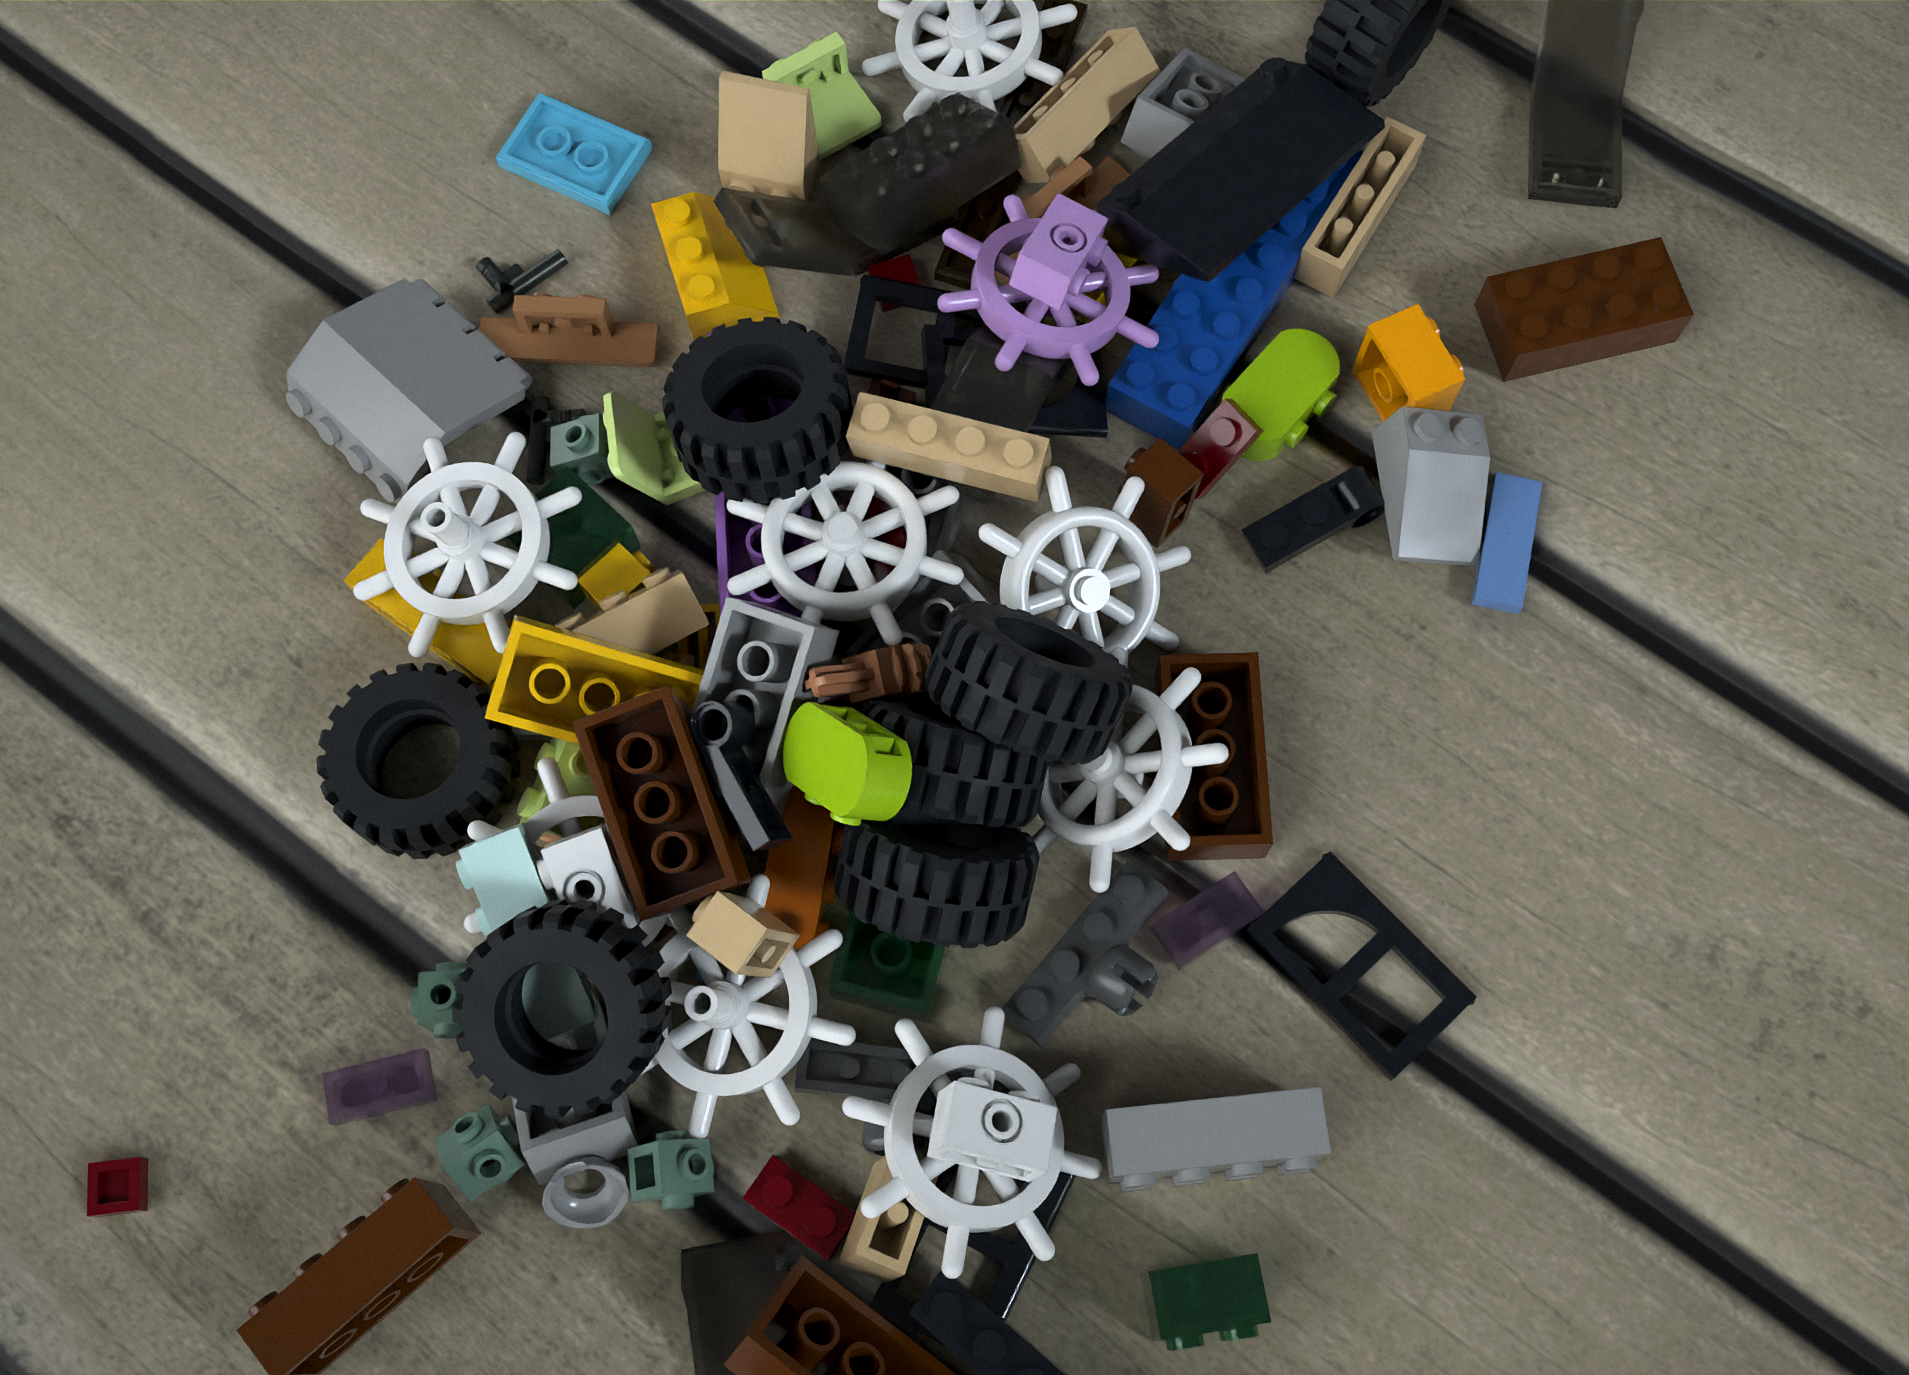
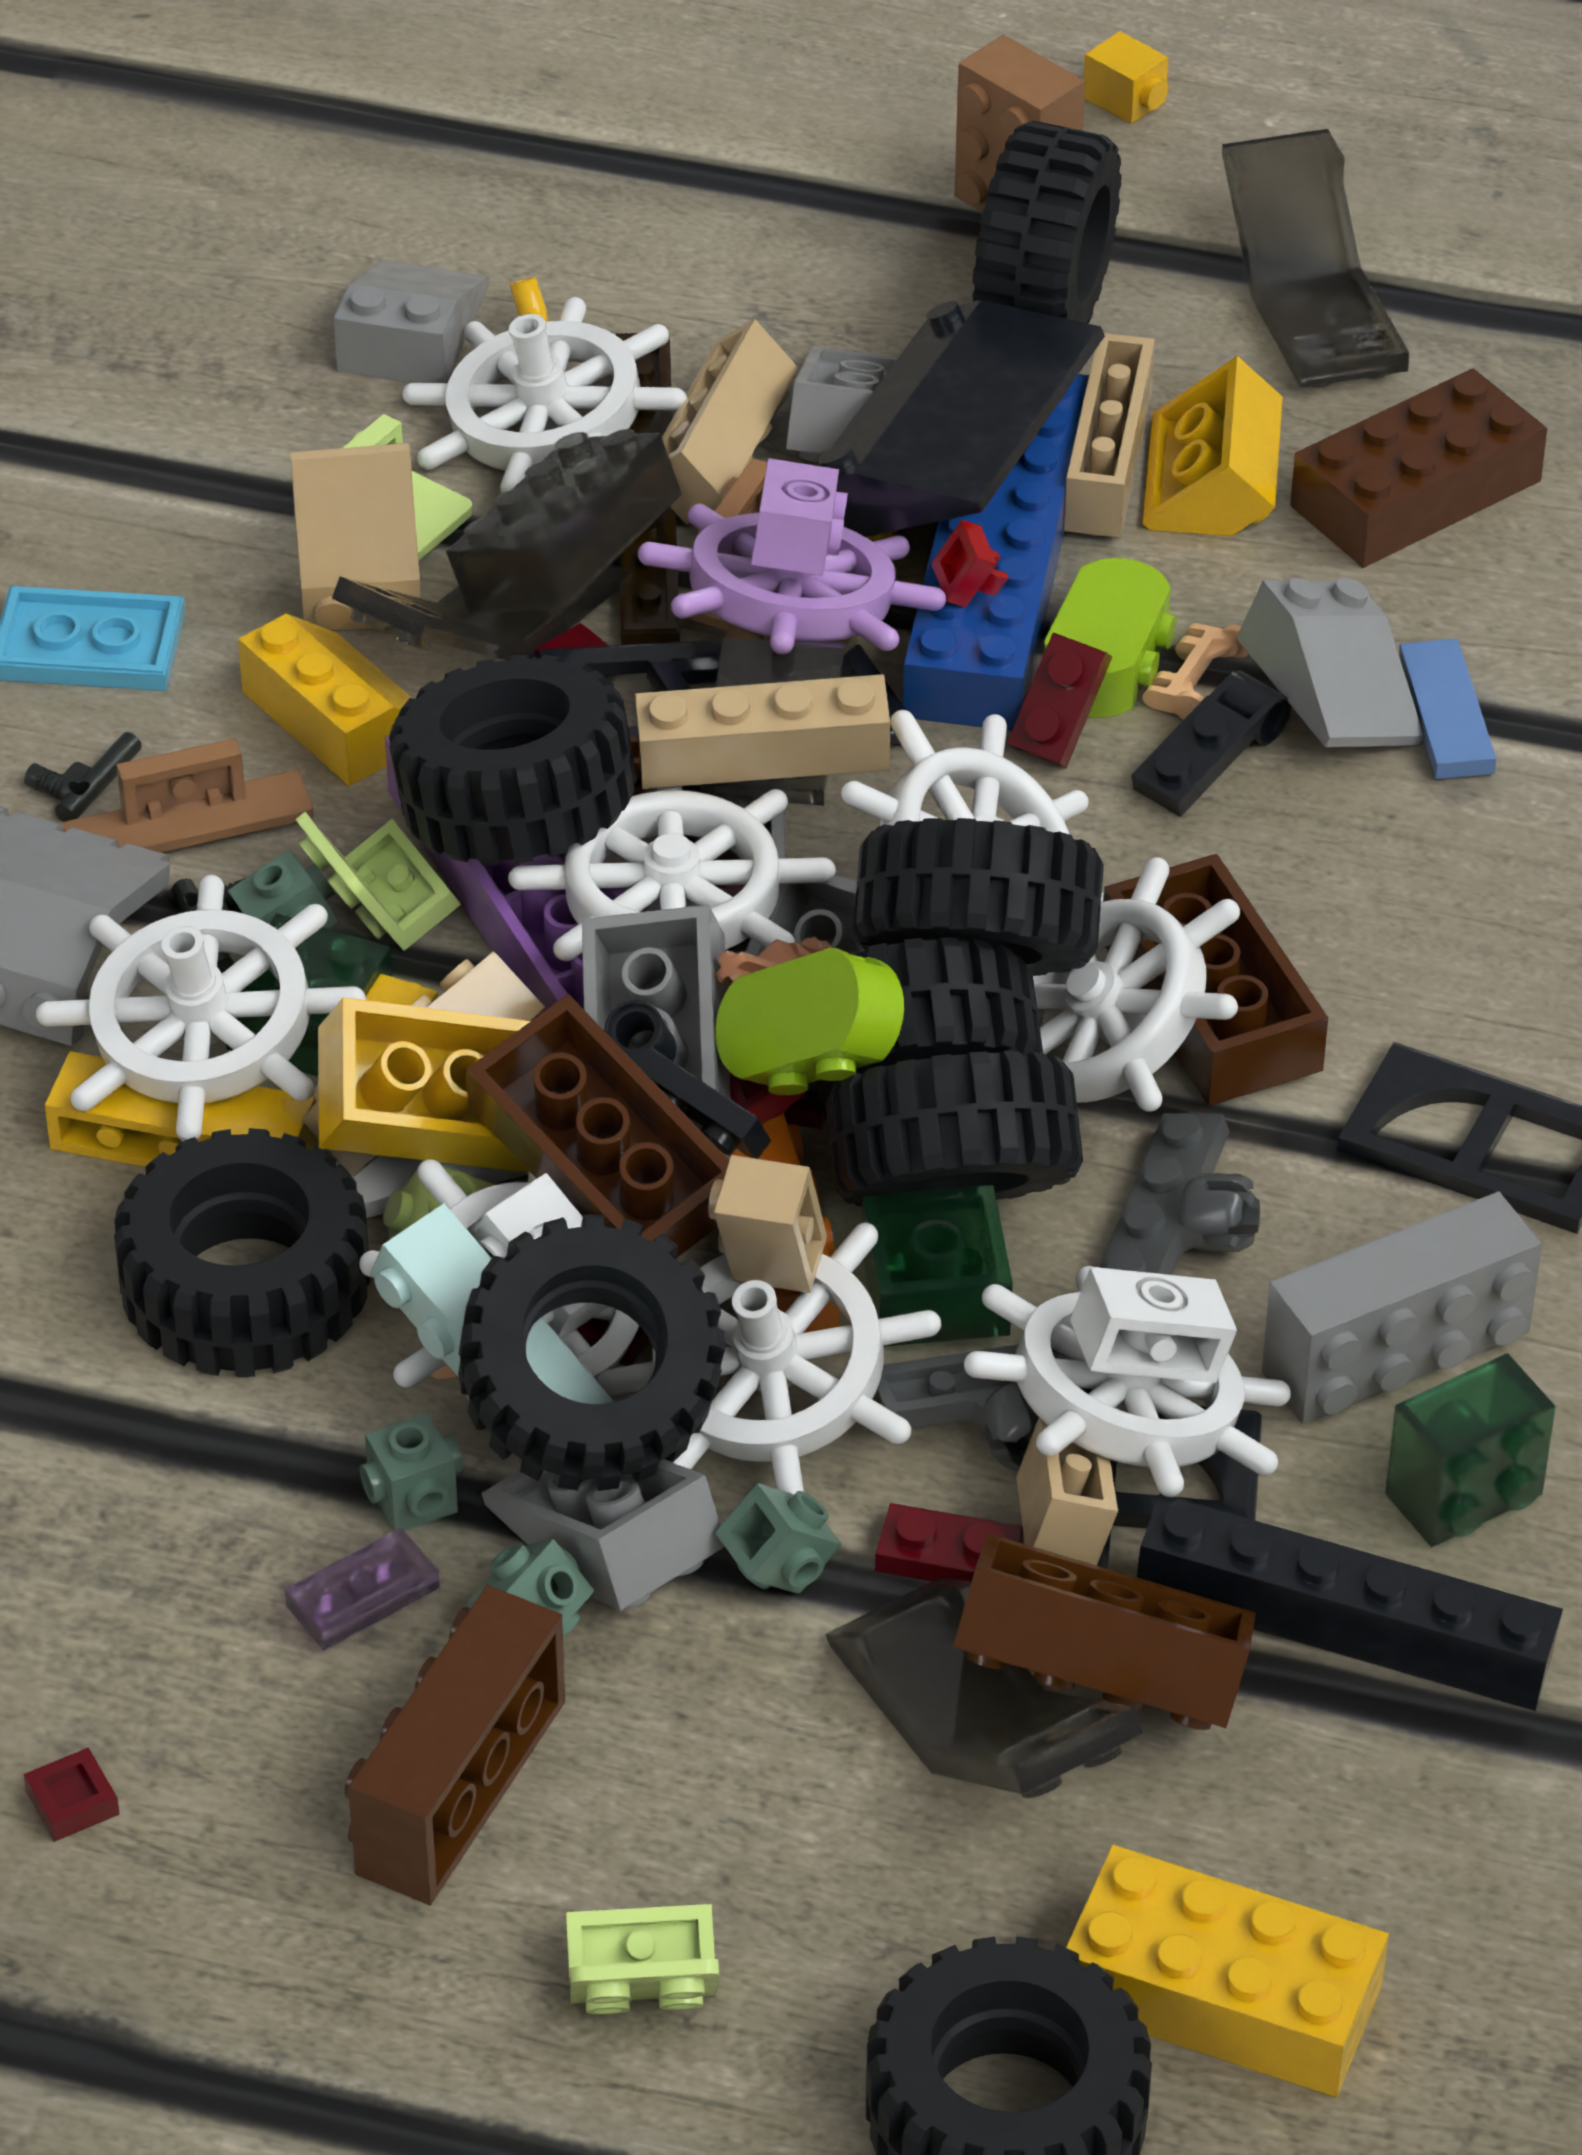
camera: 25 degrees left, 25 degrees down
(586, 1209) = (713, 1601): light grey piece -> none
(1168, 490) = (1033, 731): reddish brown brick -> none
(1184, 317) = (967, 565): none -> red tile
(1207, 920) = (1287, 1139): clear purple plate -> none
(1352, 423) = (1198, 648): none -> light nougat piece
(1407, 364) = (1236, 544): light orange brick -> none
(1433, 246) = (1214, 455): none -> yellow slope

